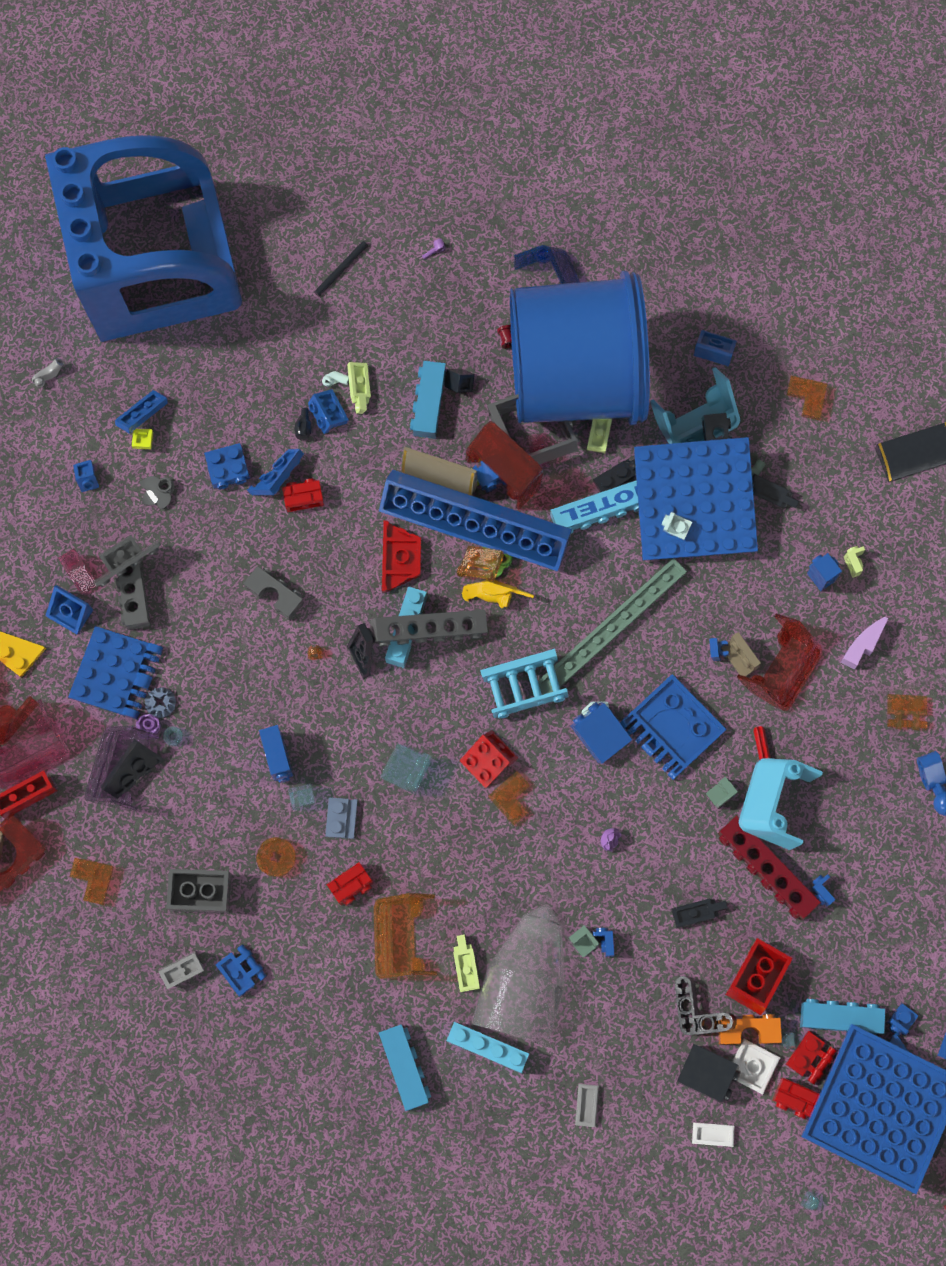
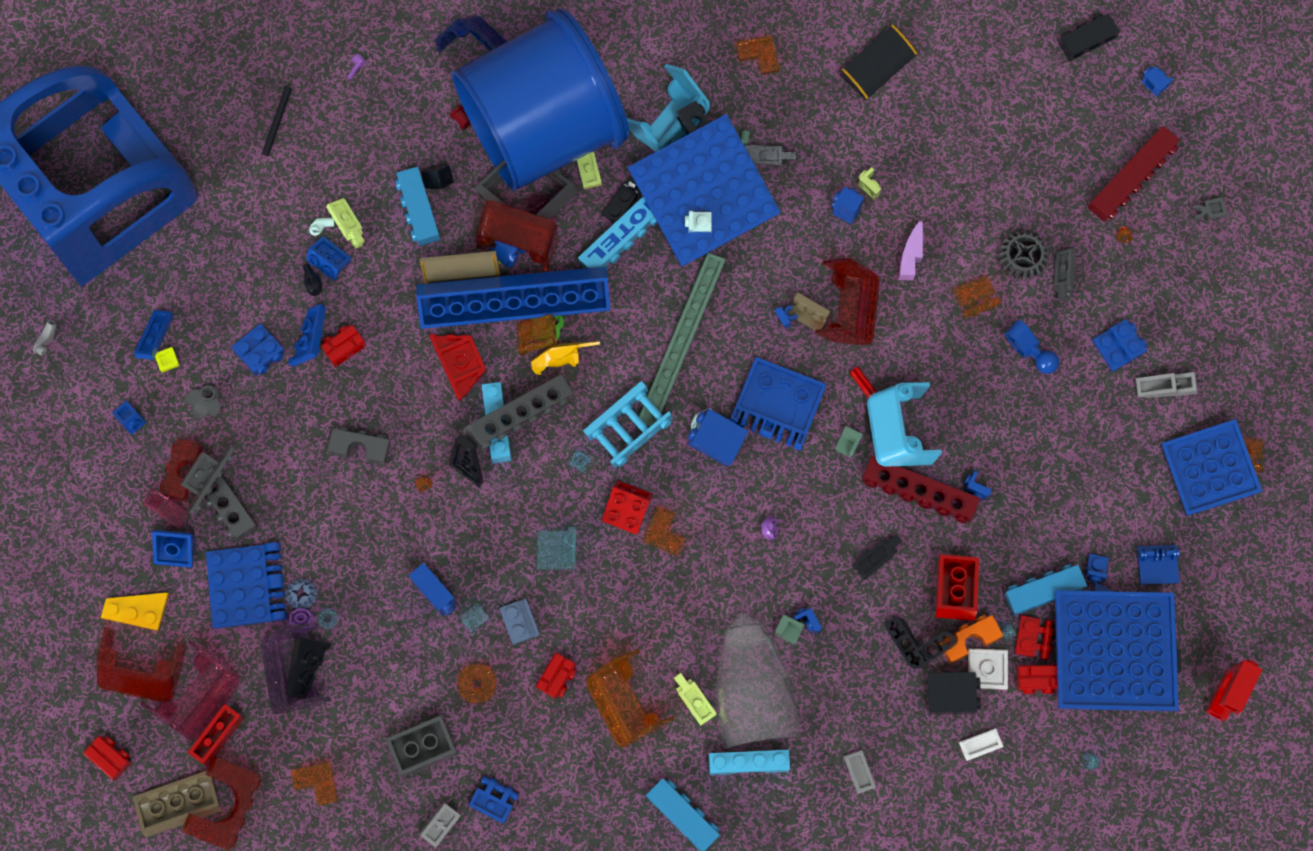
camera: 30 degrees left, 0 degrees up
(116, 530) = (183, 454): none -> clear red arch
(466, 691) = (578, 455): none -> clear light blue plate
(715, 348) = (656, 46): blue slope -> none

